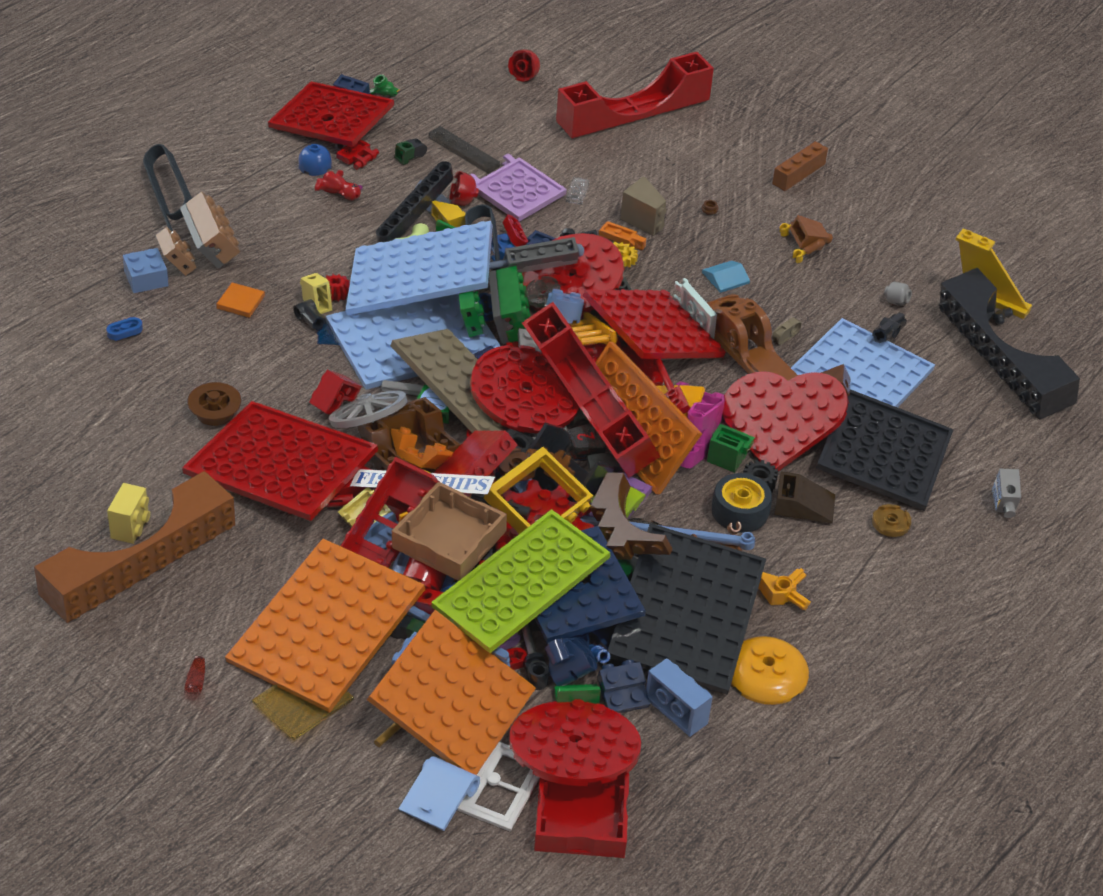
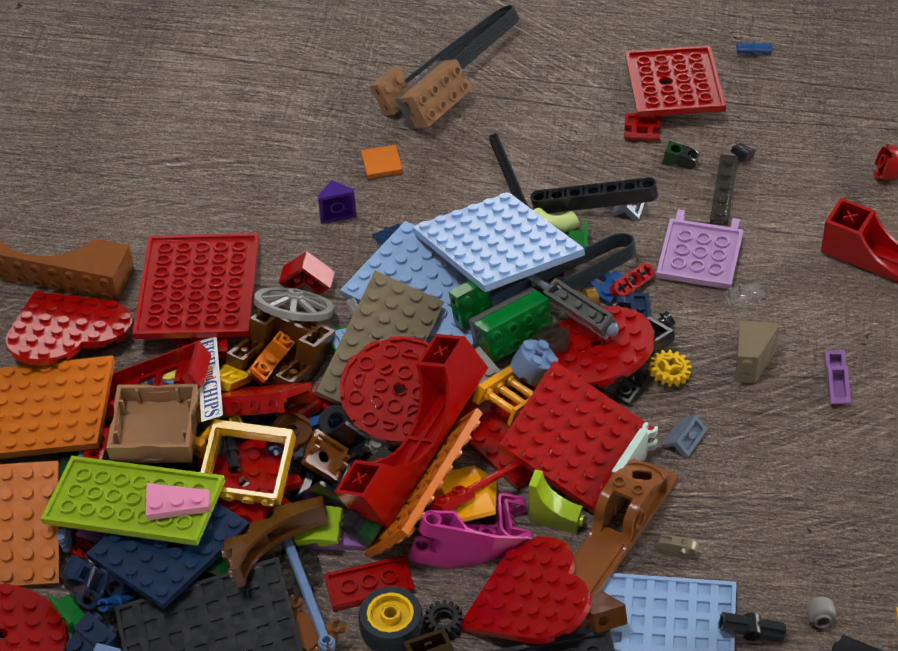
camera: 65 degrees right, 5 degrees up
(124, 328) = (284, 117): blue plate -> none
(128, 513) = (67, 231): light yellow brick -> none
(145, 270) = (355, 89): medium blue brick -> none
(214, 403) = (235, 212): reddish brown wheel -> none
(244, 563) = (62, 325): none -> red plate
(271, 337) = (336, 203): none -> dark purple slope
(308, 312) = (397, 208): black piece -> none
(315, 160) = (604, 106): blue cylinder -> none
(317, 288) = (421, 199): light yellow torso -> none
(321, 238) = (506, 168): none -> black axle
(336, 65) = (754, 47): none -> blue pin
(336, 184) = (583, 134): red animal -> none
(338, 287) = (444, 205): red gear -> none
(352, 84) = (727, 74): dark blue hinge -> none
(383, 87) = (752, 92): green animal -> none
(437, 121) = (742, 151): none -> black tile
(448, 213) = (609, 224): yellow slope -> none
(463, 190) = (654, 216): red cylinder -> none
(555, 549) = (173, 501): none -> bright pink wing
(622, 234) = (705, 357): orange hinge -> none
(643, 476) = (359, 527): none -> leg
(682, 271) = (685, 435): none -> sand blue panel
(688, 501) = (351, 585): none -> red tile
(697, 187) = (837, 377): none -> medium lavender slope
(705, 370) = (551, 509): none -> lime arch
(710, 207) = (816, 401): reddish brown plate -> none
(727, 275) = (724, 463): dark azure slope -> none
(728, 447) = (460, 575): green plate -> none
(808, 234) = (840, 497): dark orange torso -> none

